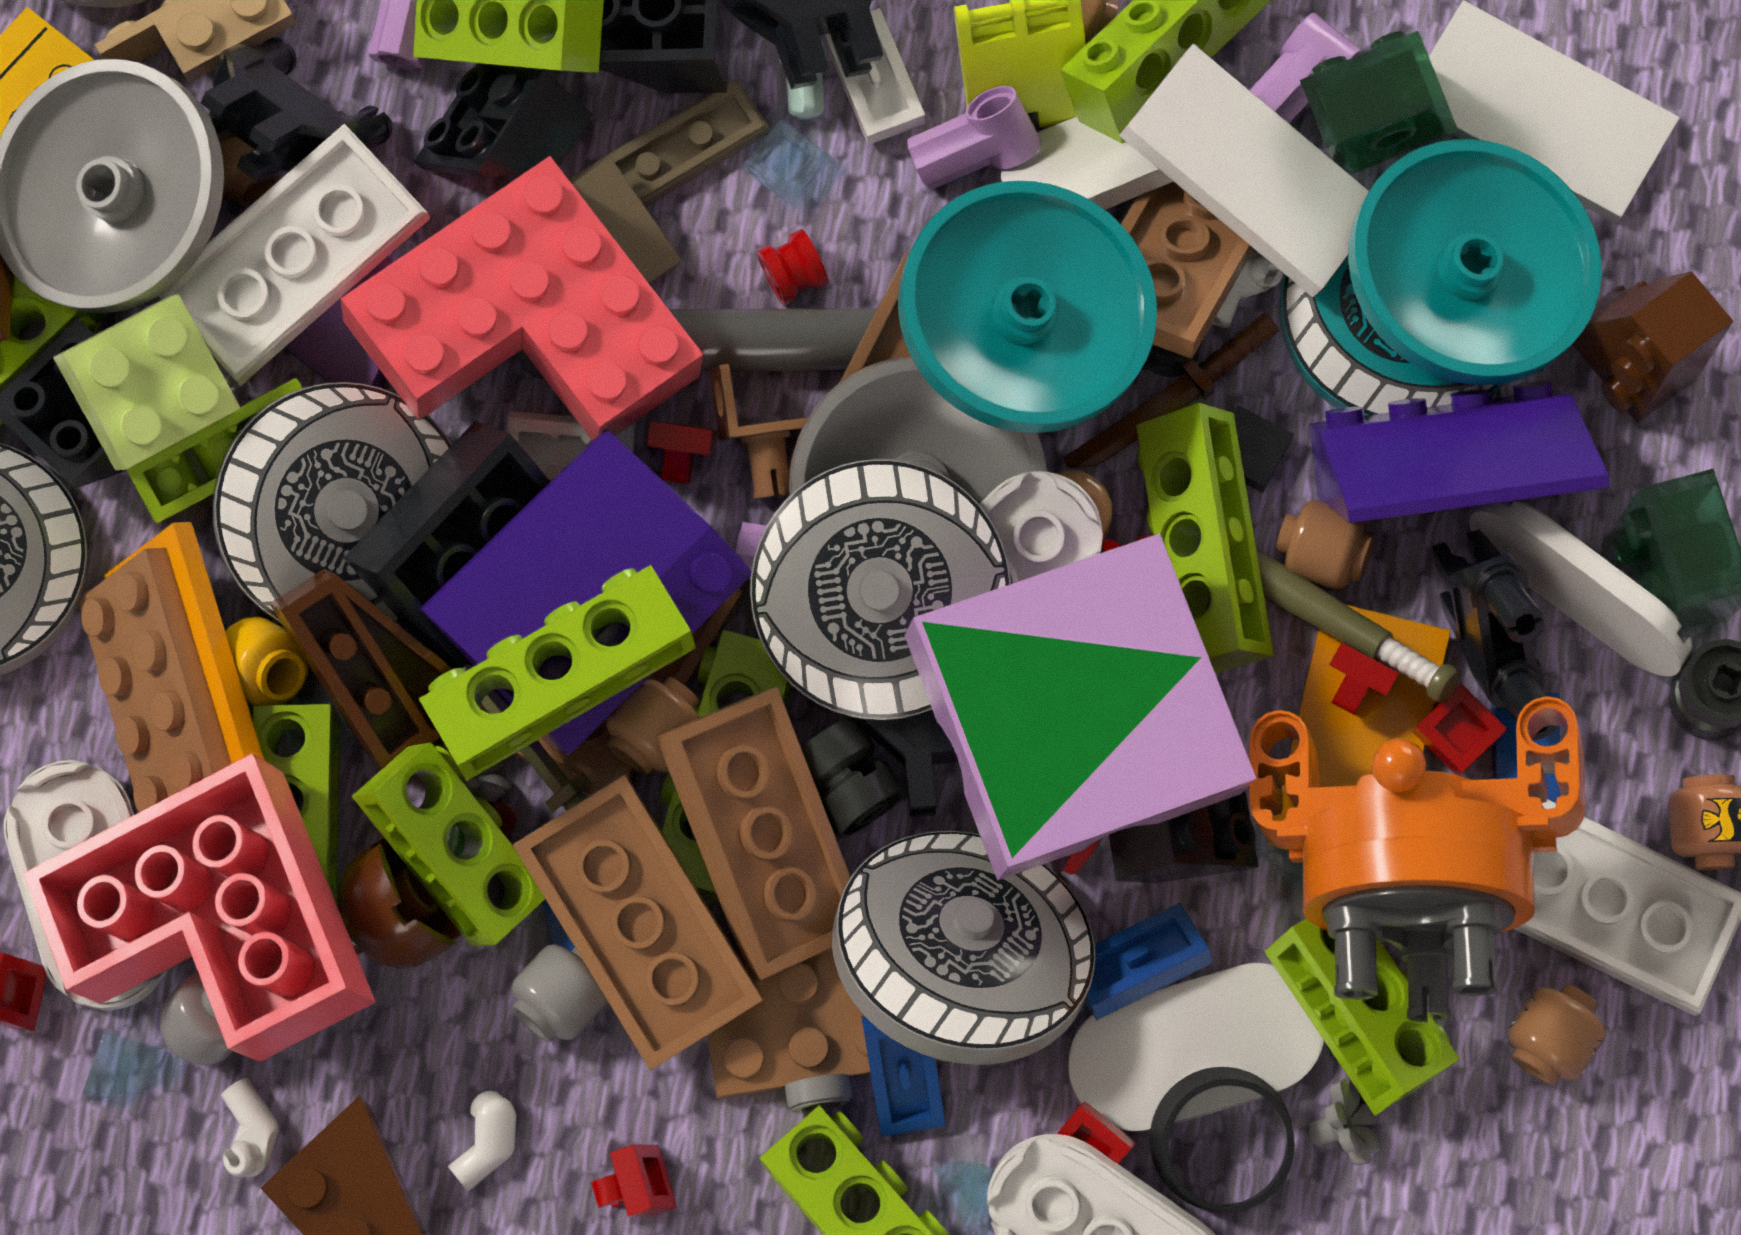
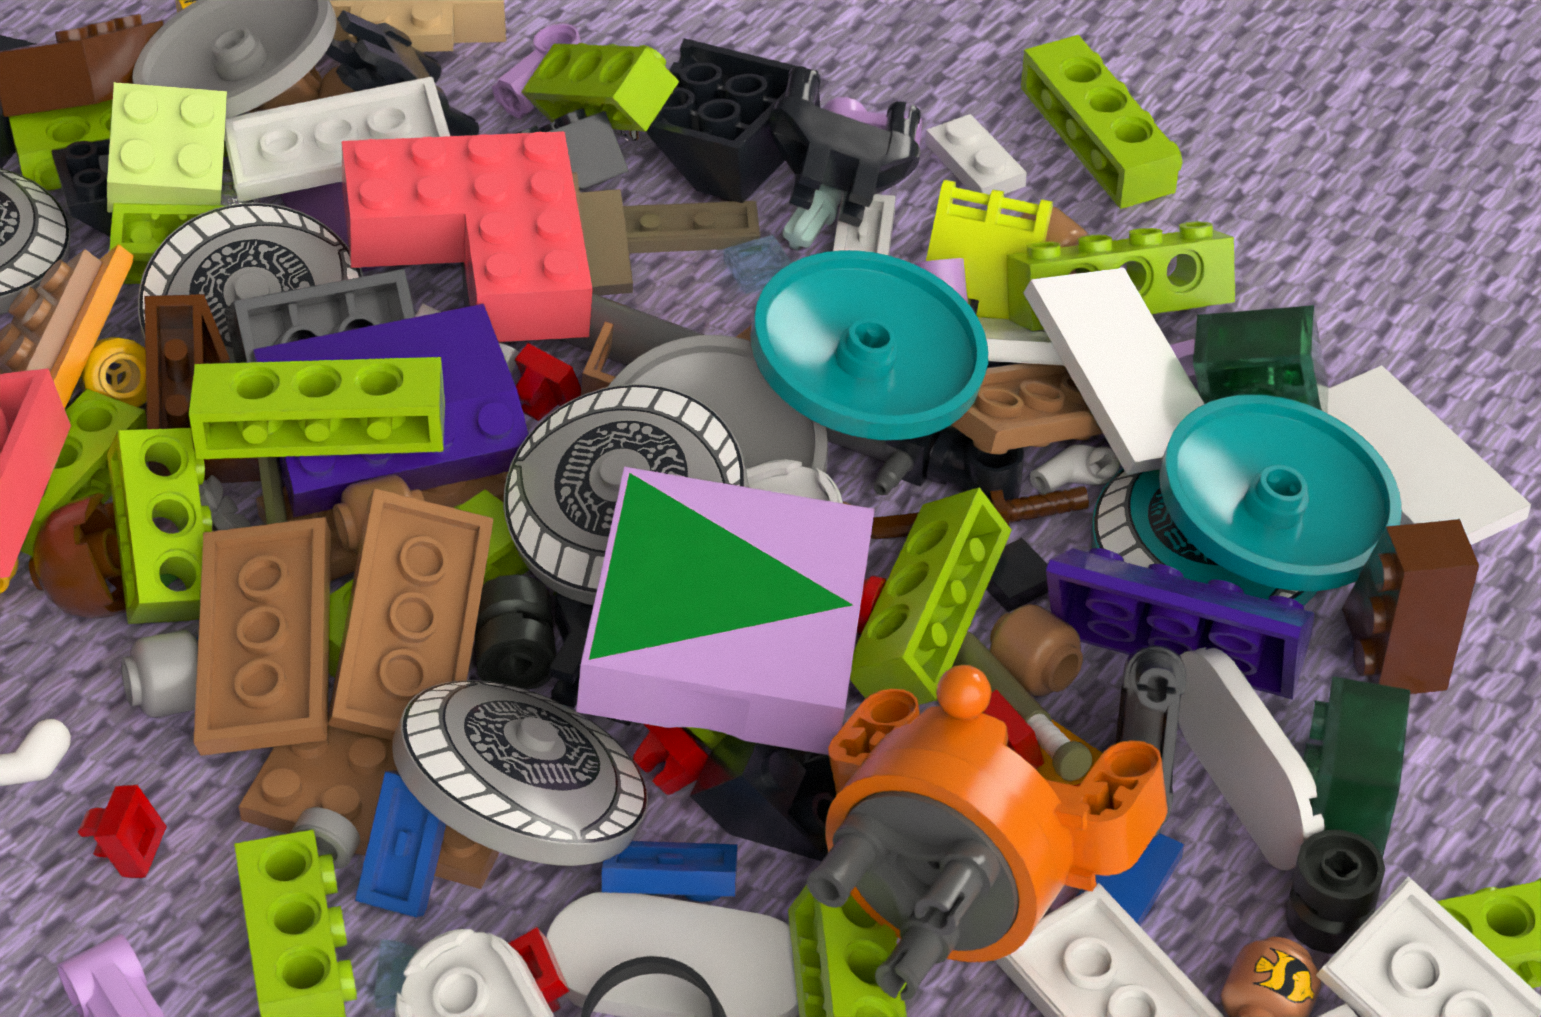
camera: 25 degrees right, 30 degrees down
(792, 267) = (715, 312): red wheel -> none

